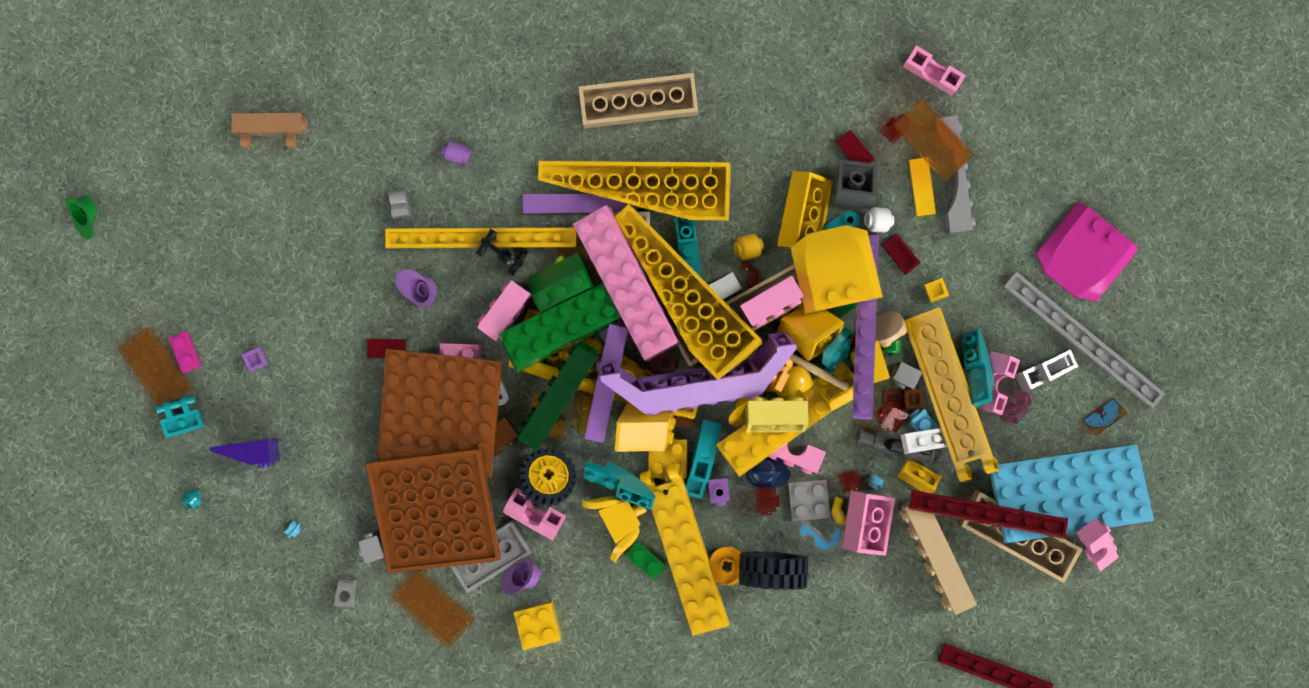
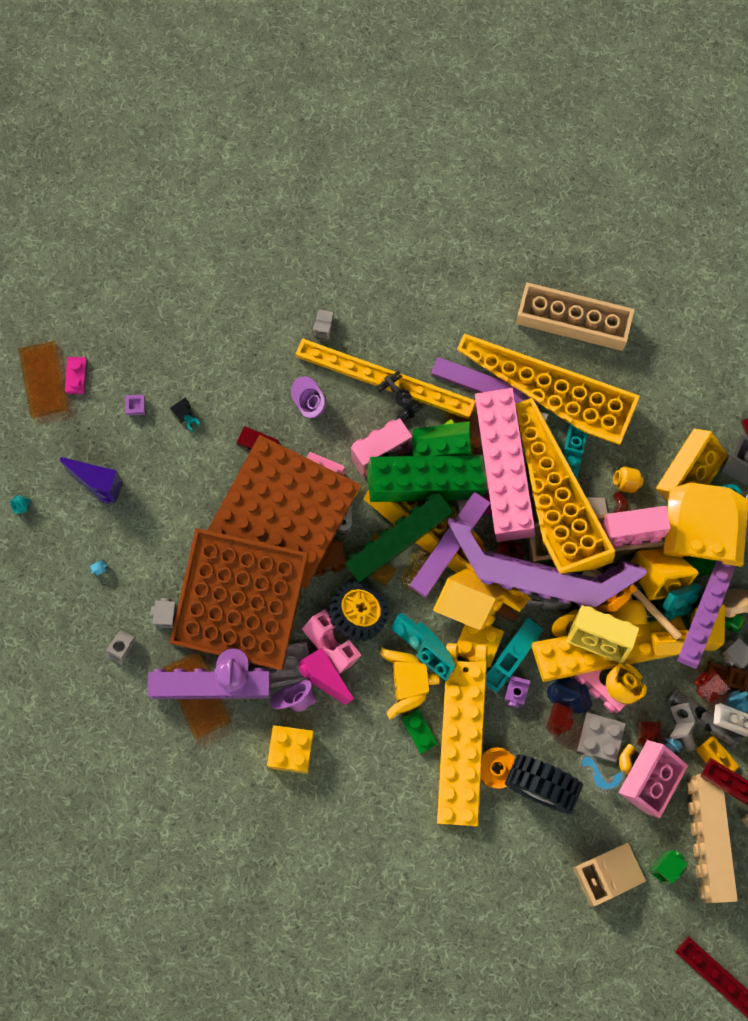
camera: 15 degrees right, 15 degrees down
(83, 214) = (44, 227): green piece -> none
(182, 422) = (43, 432): teal plate -> none
(268, 124) = (239, 216): medium nougat brick -> none
(303, 349) = (182, 413): none -> black piece
(441, 598) = (202, 685): none -> medium lavender brick
(456, 152) = (393, 300): medium lavender brick -> none
(456, 580) = (231, 672): none -> medium lavender piece
(538, 546) = (322, 673): none -> dark pink slope
(814, 451) = (625, 684): none -> yellow cylinder
(859, 620) = (609, 874): none -> tan slope
(879, 462) = (684, 726): none -> light grey bracket
(907, 594) = (668, 867): none -> green brick

